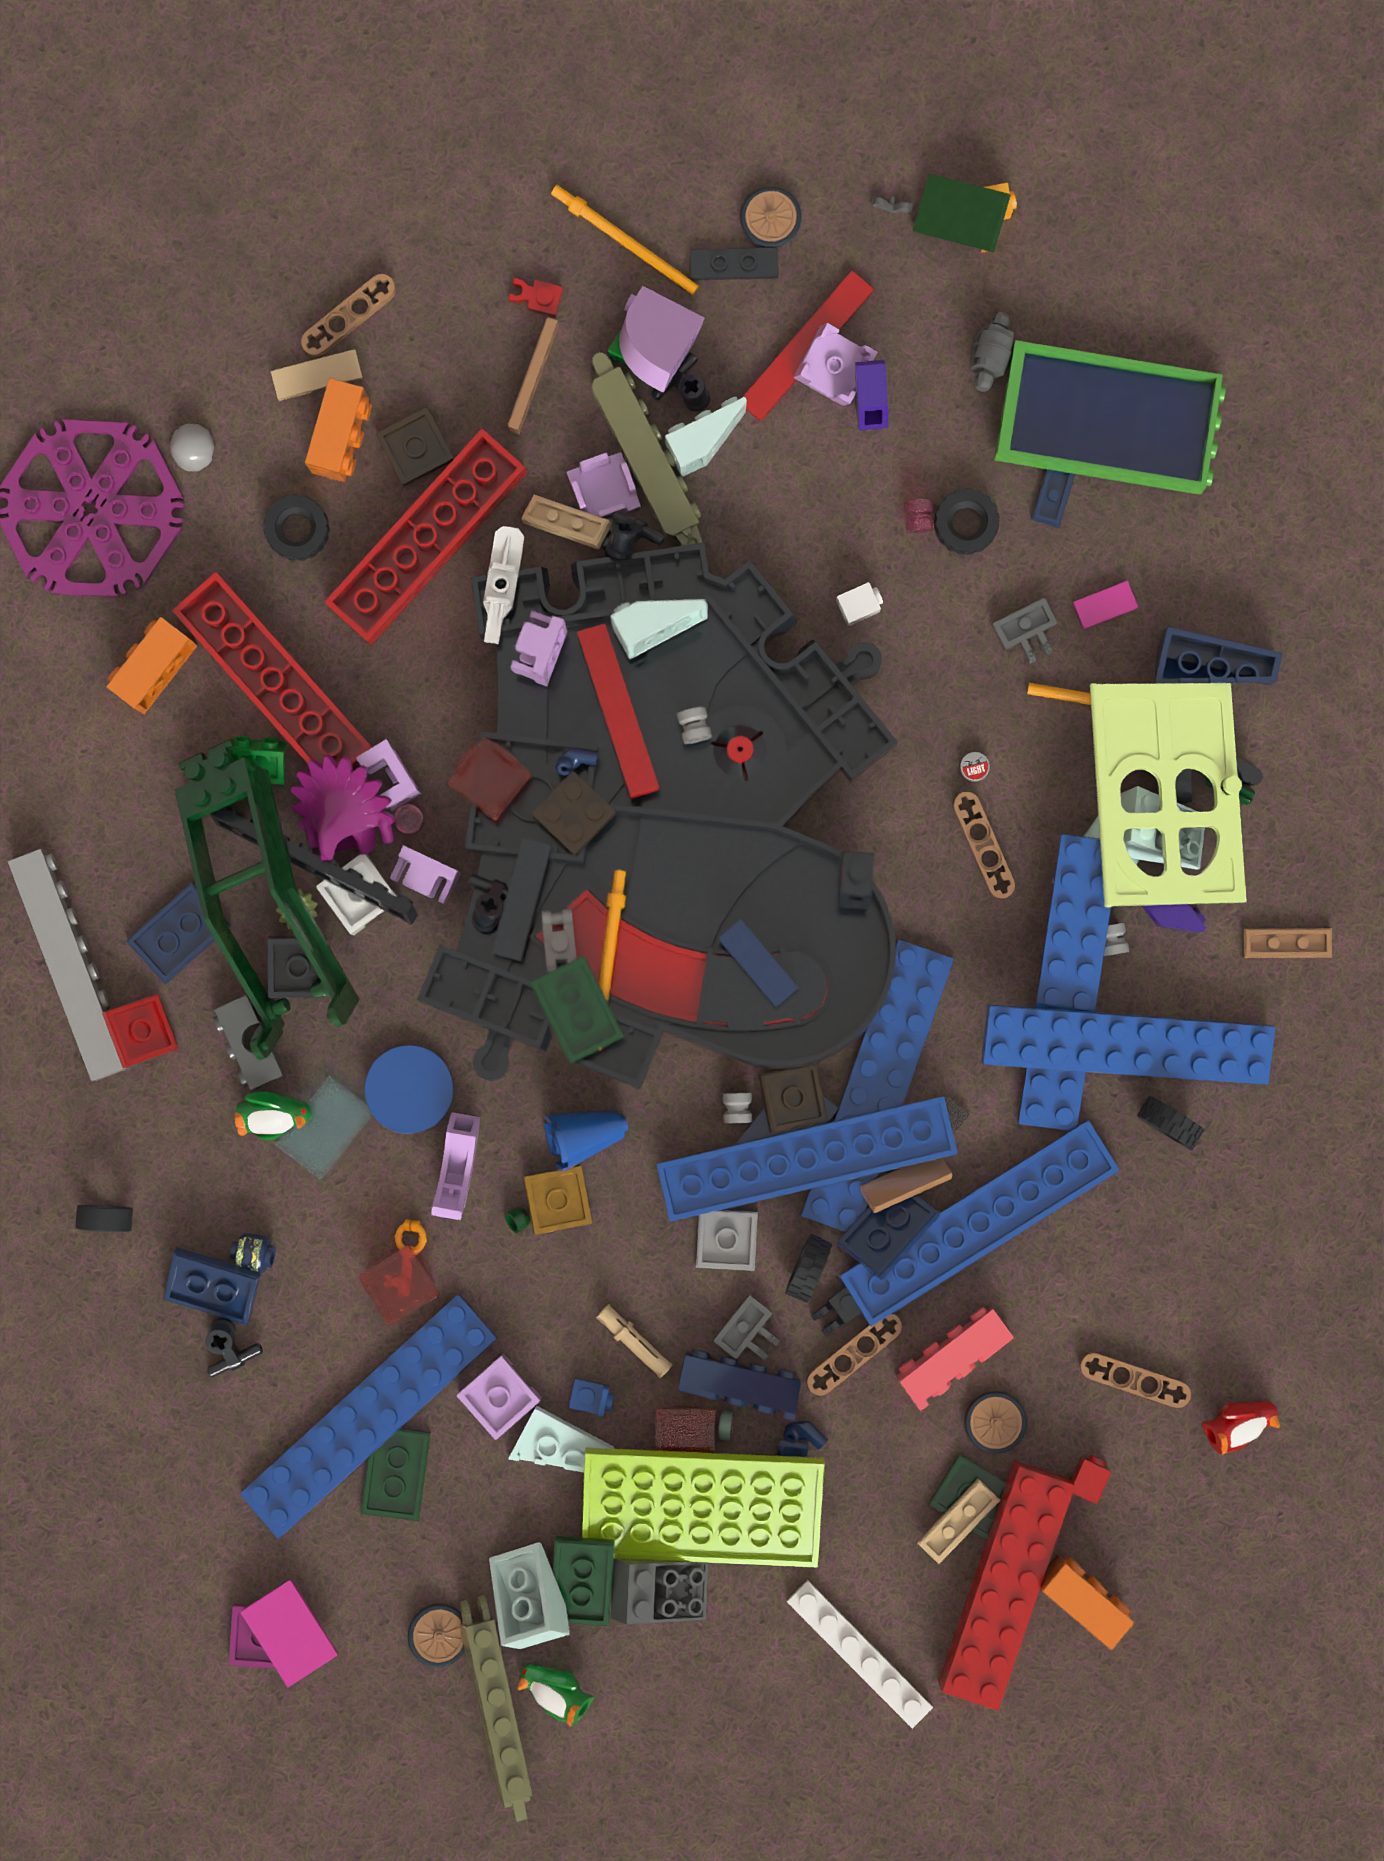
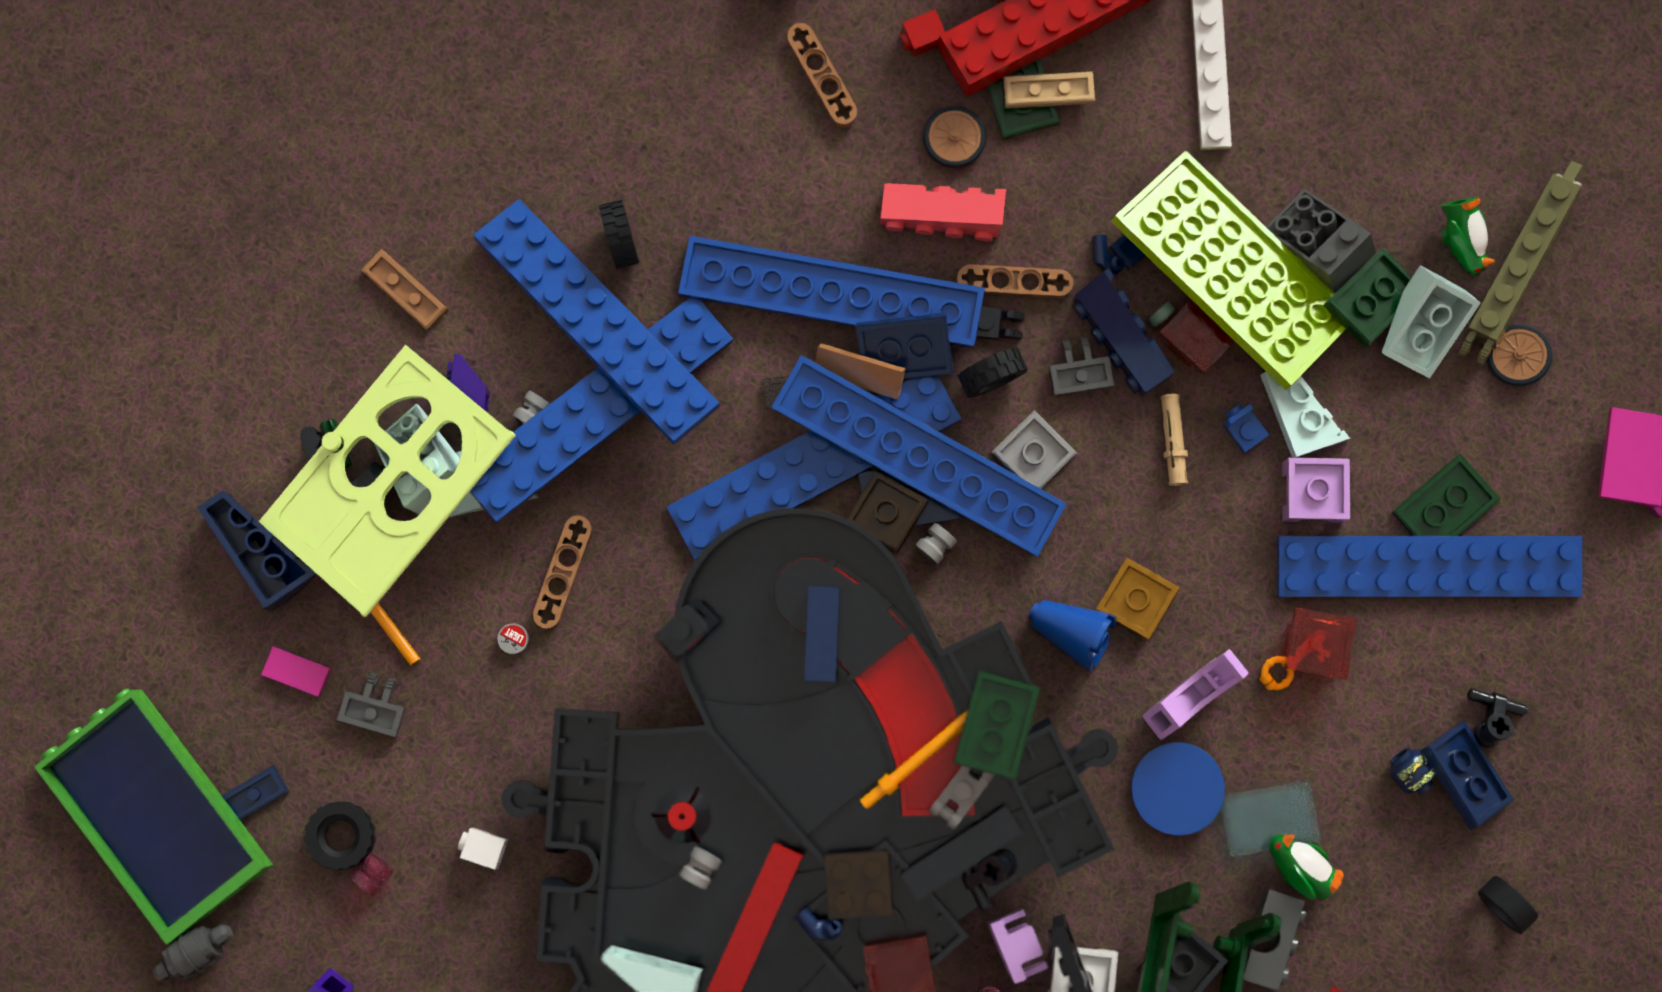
camera: 140 degrees left, 5 degrees down
(516, 1220) = (1183, 612): dark green hinge -> none

